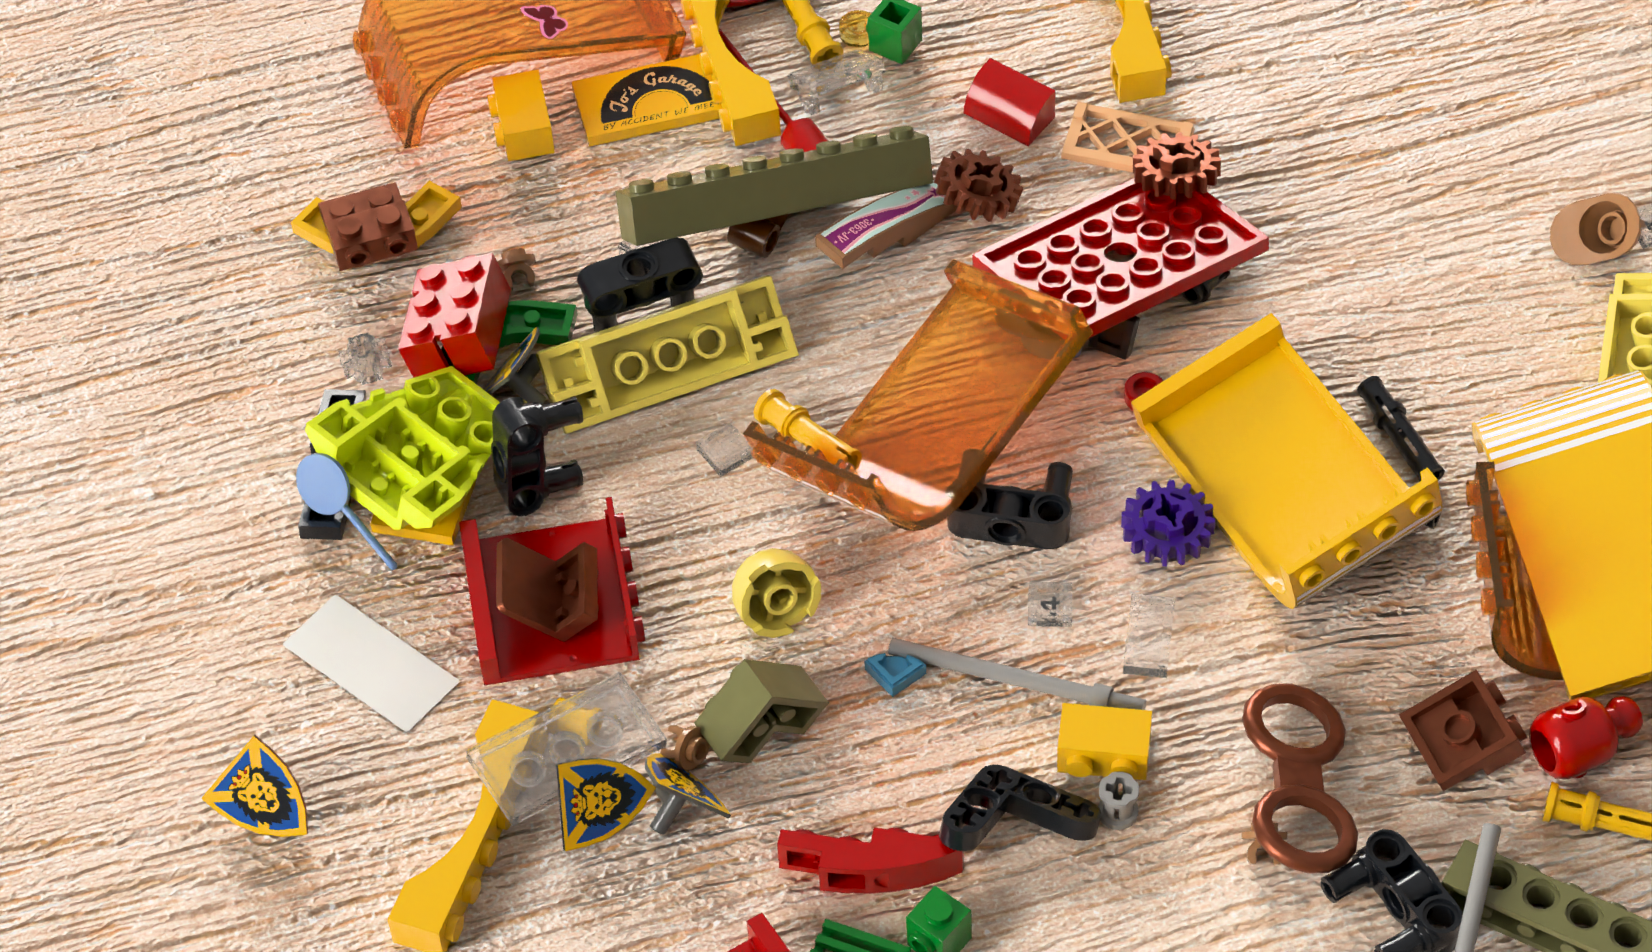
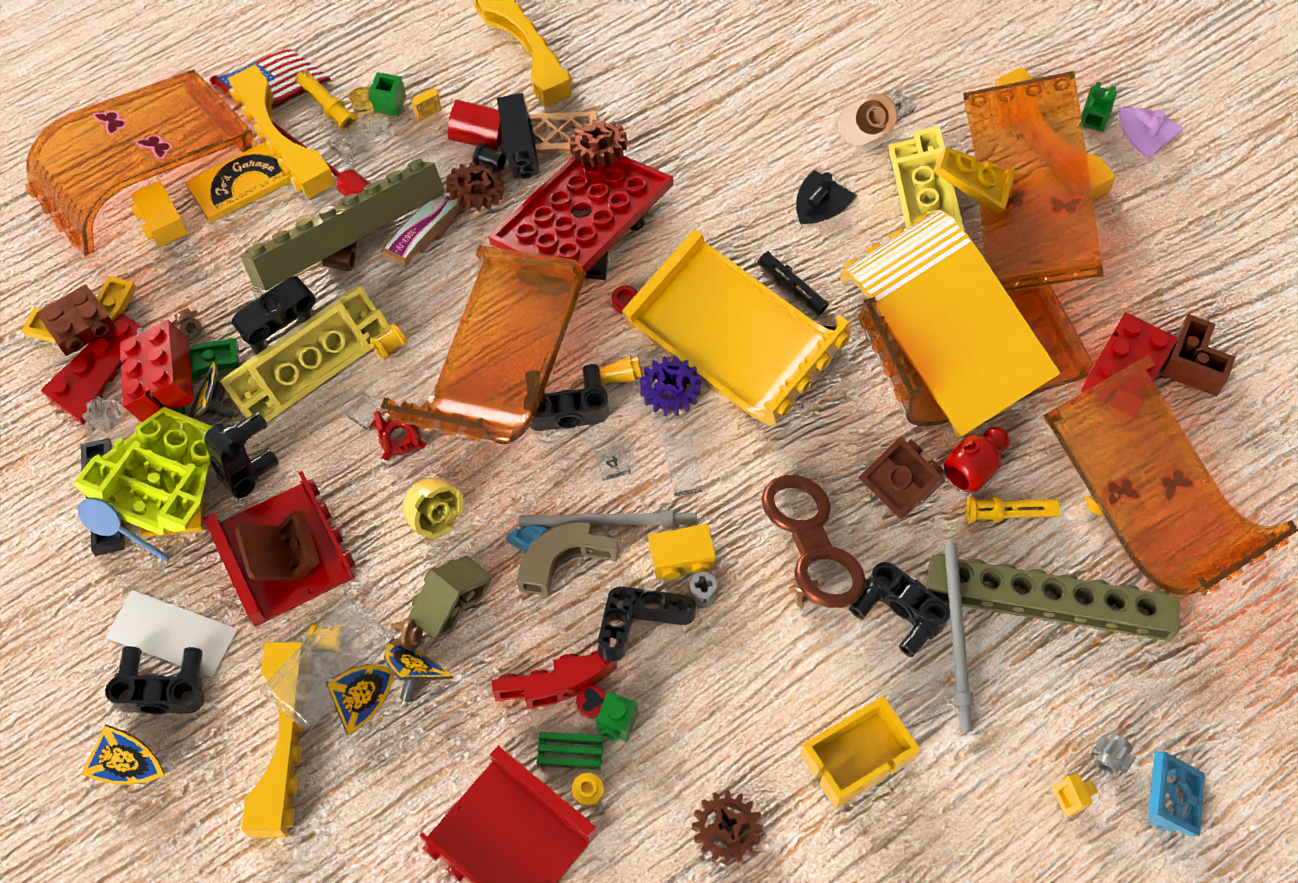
camera: 20 degrees left, 10 degrees up
(328, 726) = (155, 692): none -> black piece
(365, 299) = (90, 370): none -> red wing
(756, 506) = (394, 447): none -> red piece
(786, 363) = (388, 341): none -> yellow bush
(797, 424) = (408, 383): yellow pin -> none
(905, 897) = (590, 700): none -> tile
(933, 691) = (557, 547): none -> dark tan arch
(947, 56) = (426, 104): none -> yellow tile
(1014, 151) = (489, 157): none -> black bush
(1062, 129) = (518, 136): none -> black window
(1105, 485) = (624, 370): none -> yellow cone
(1489, 326) = (821, 198): none -> black shield

